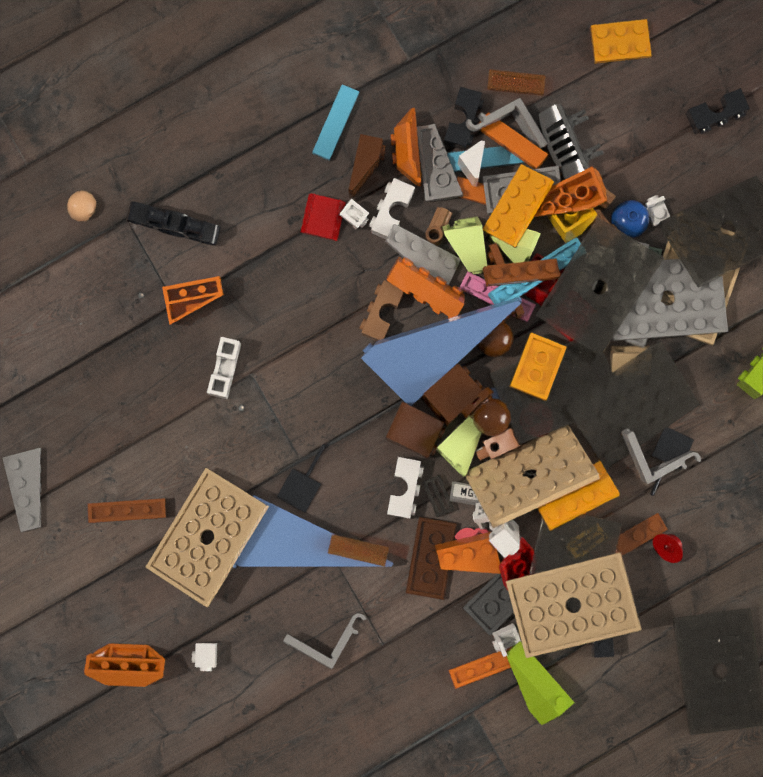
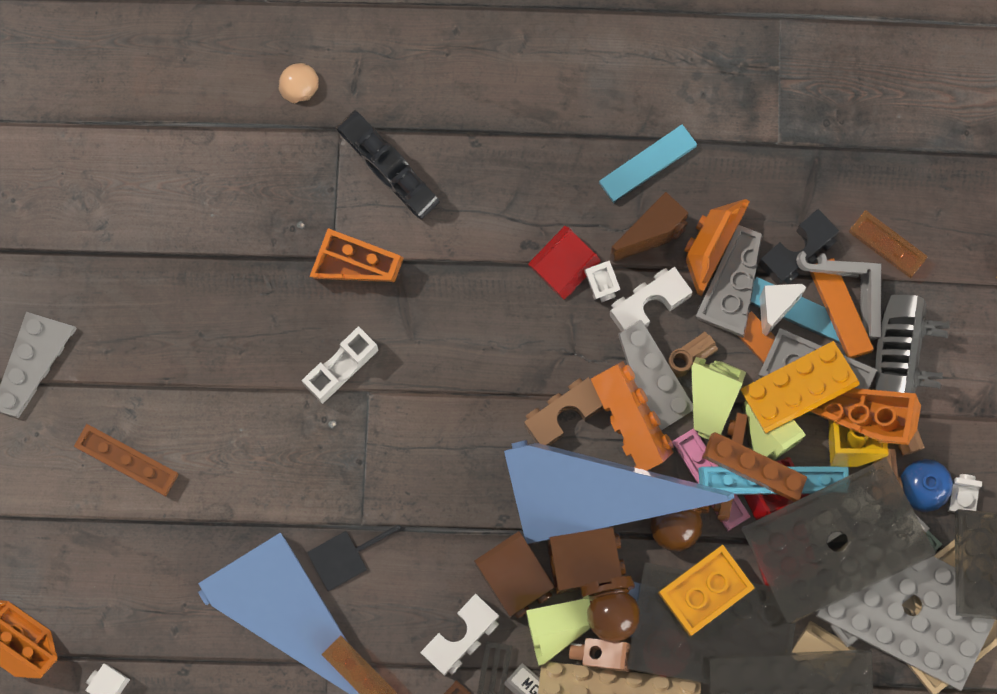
camera: 35 degrees right, 5 degrees down
(182, 555) = (154, 550): tan plate -> none

